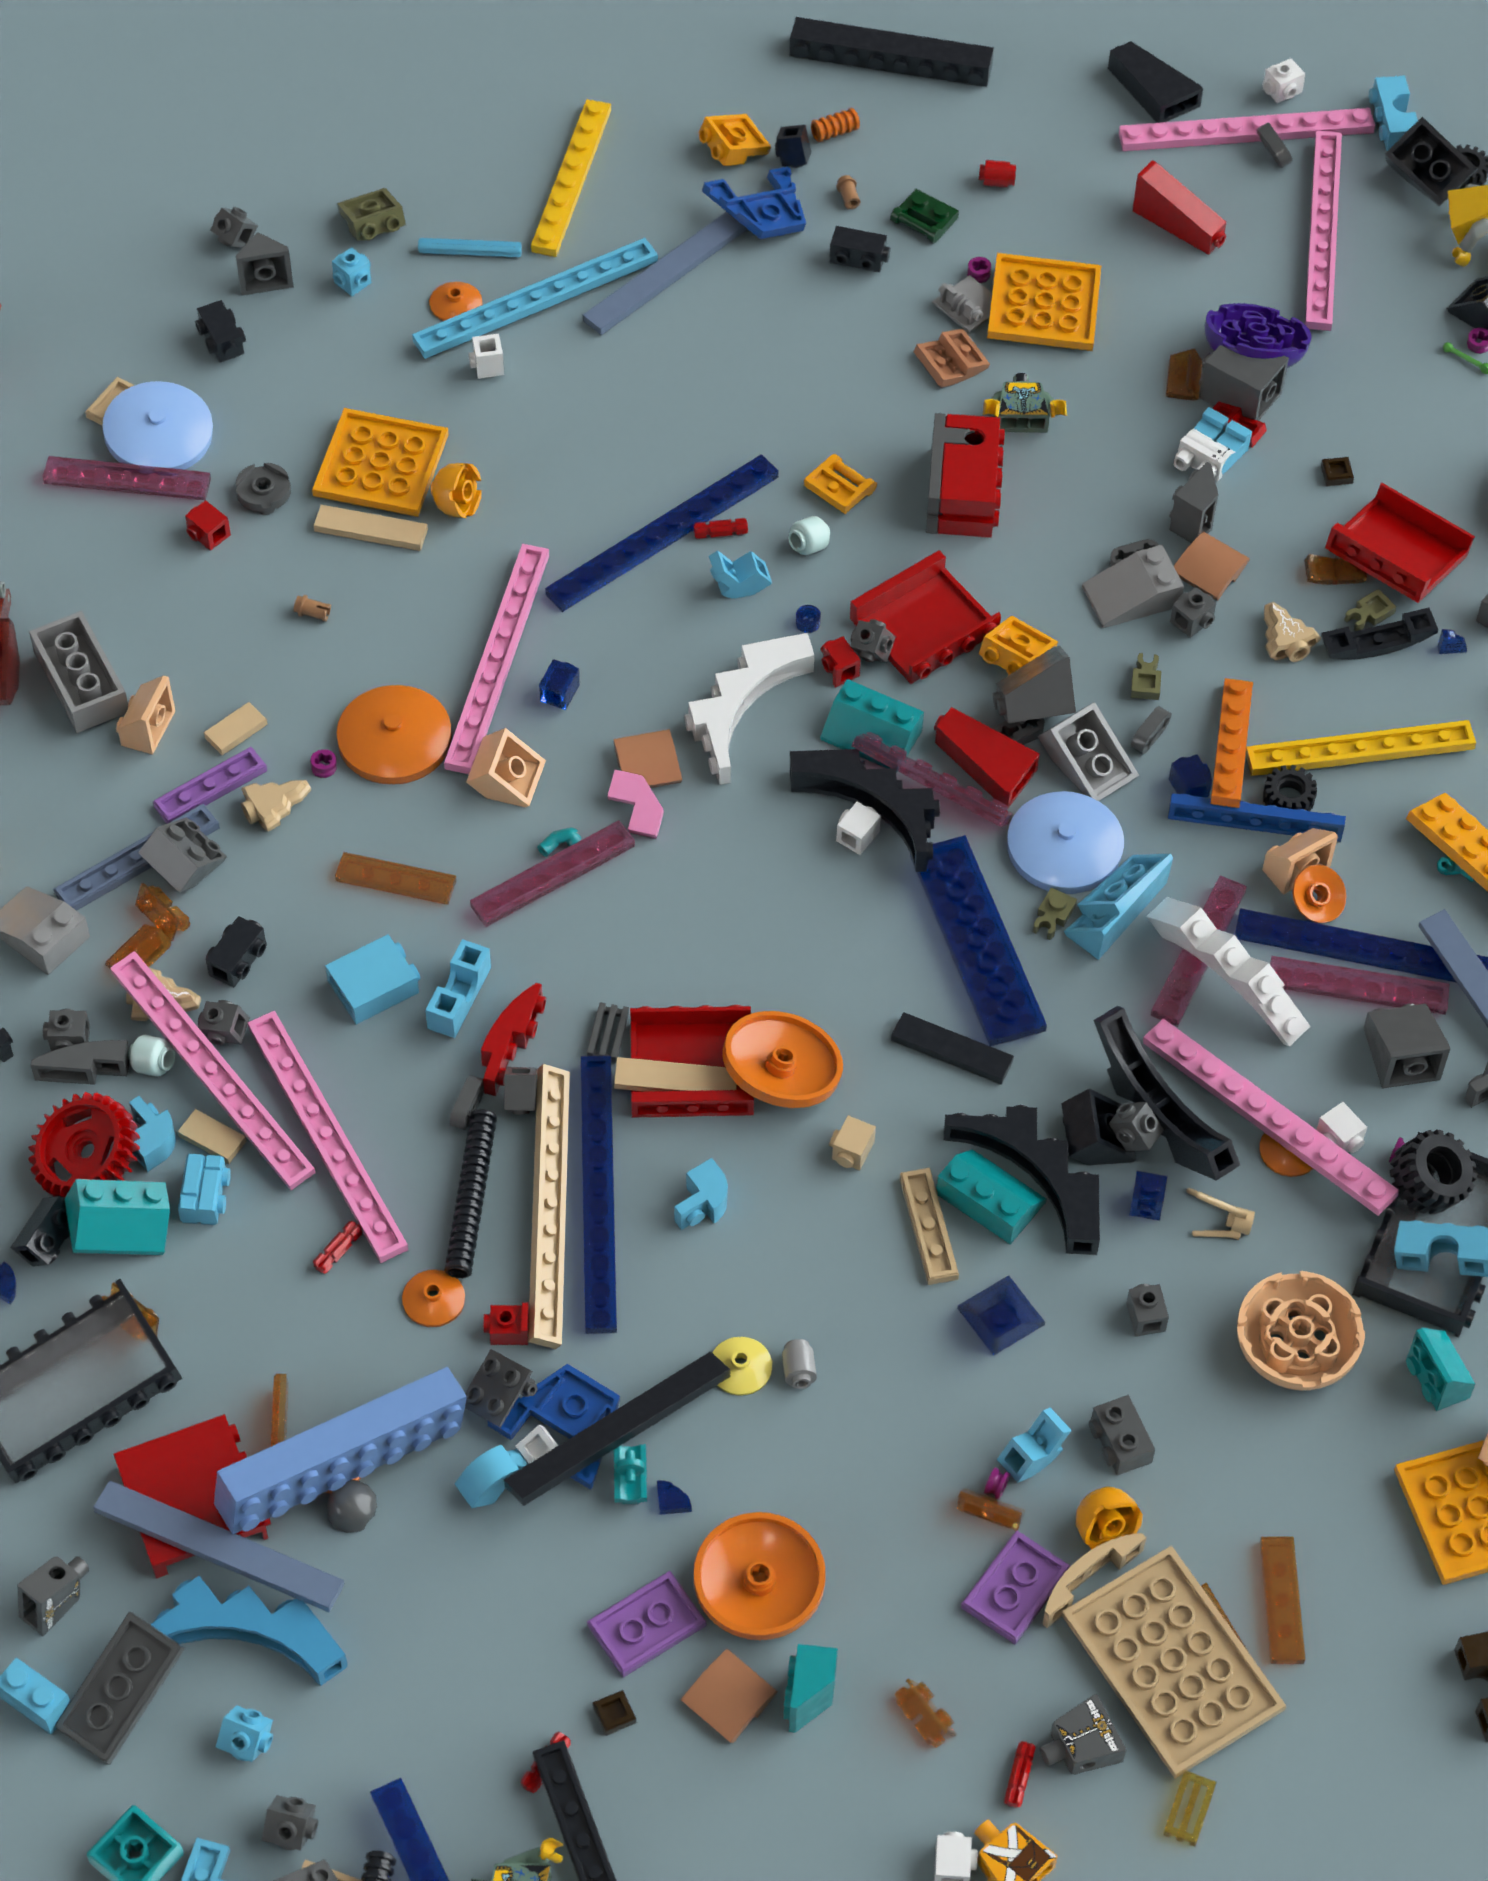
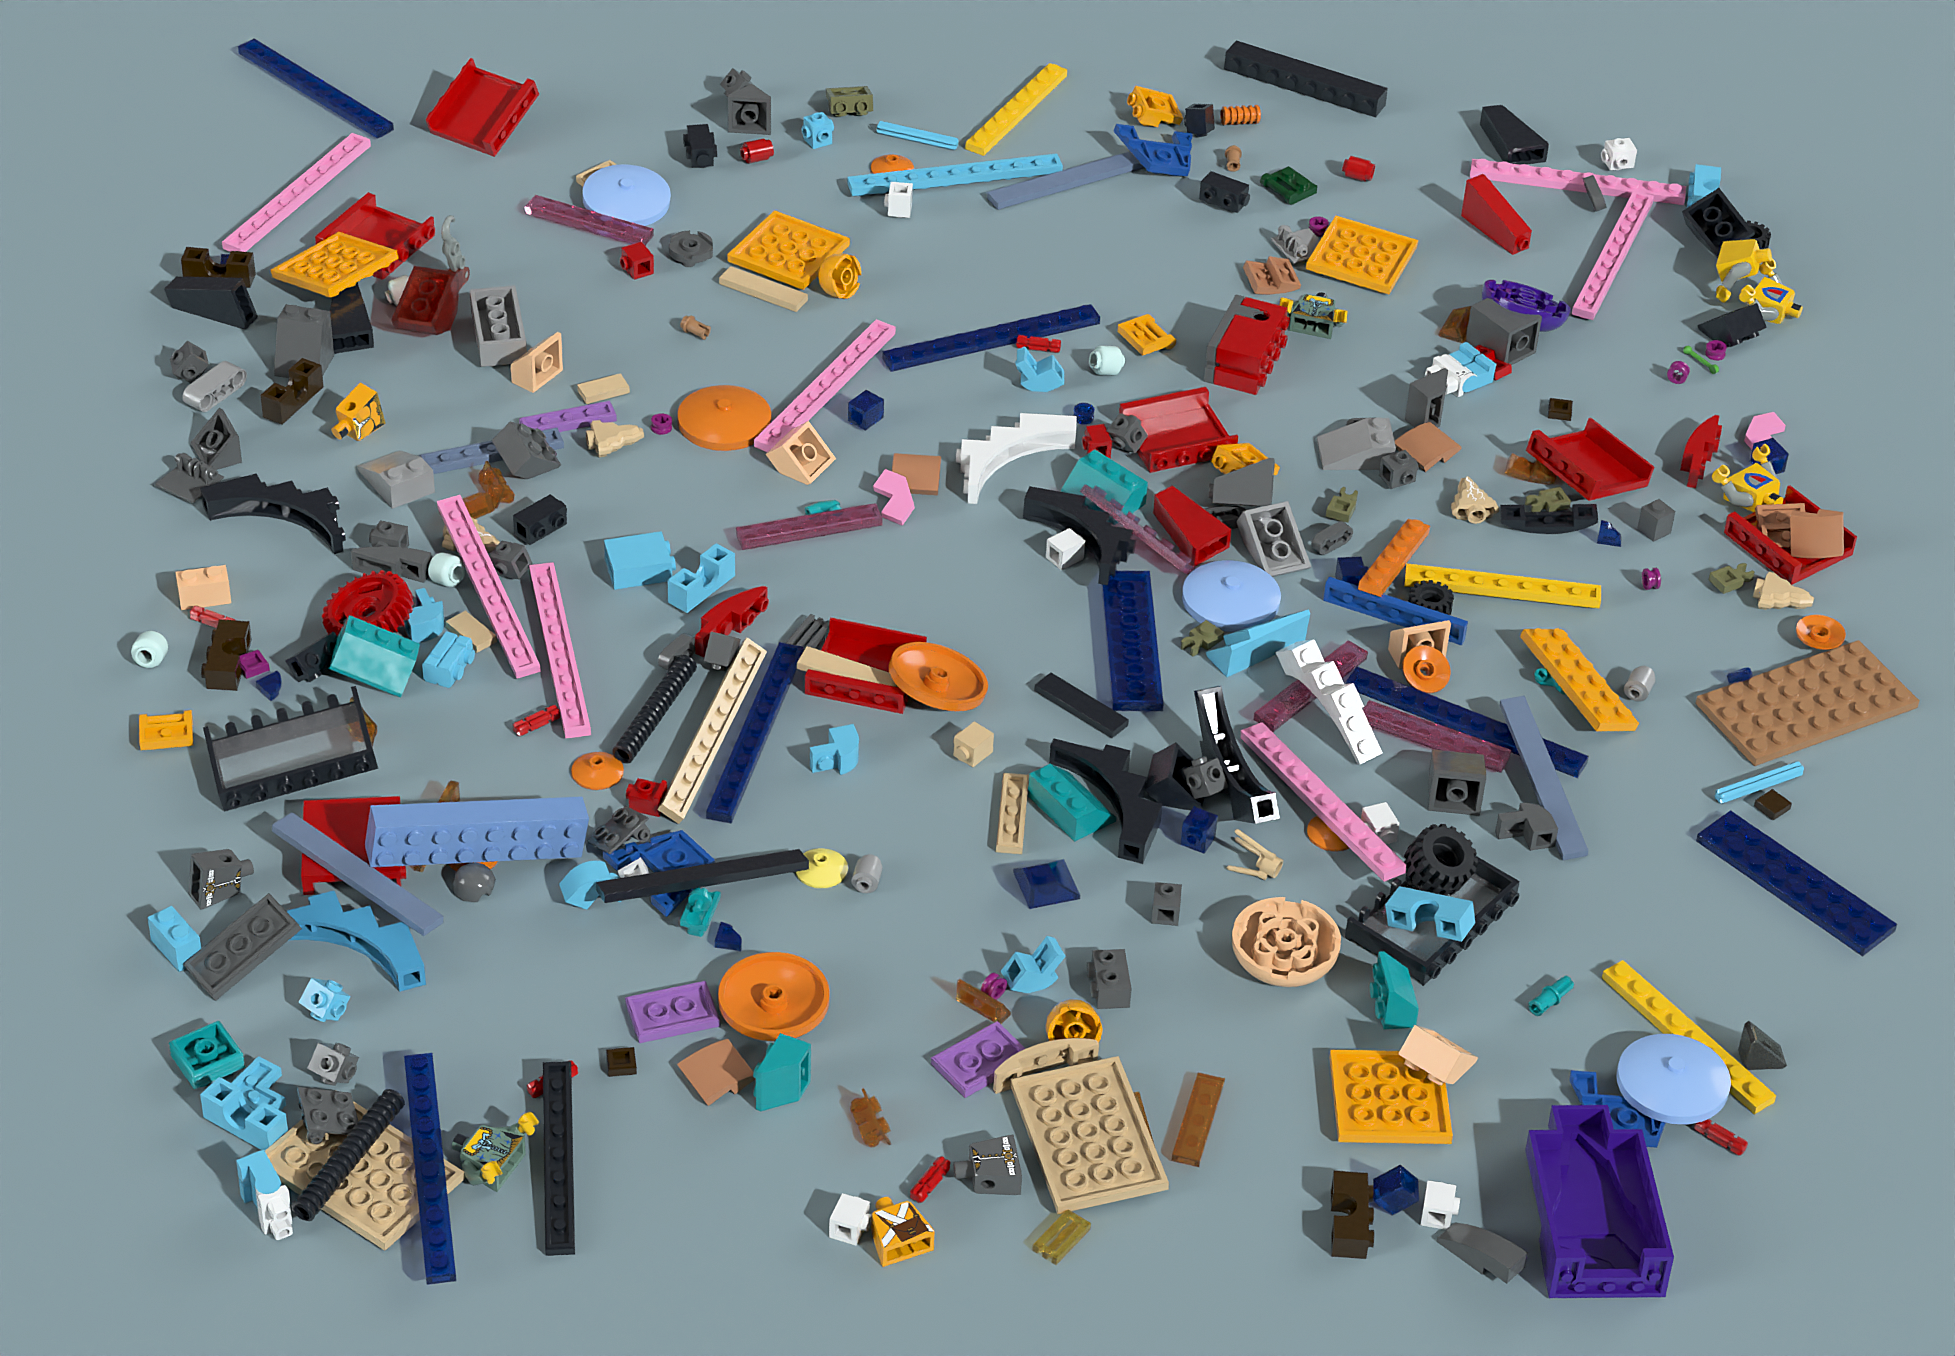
camera: 15 degrees right, 15 degrees down
(289, 320) = (757, 150): none -> red brick
(395, 878) = (685, 505): clear orange tile -> none
(1451, 385) = (1681, 367): none -> magenta bush

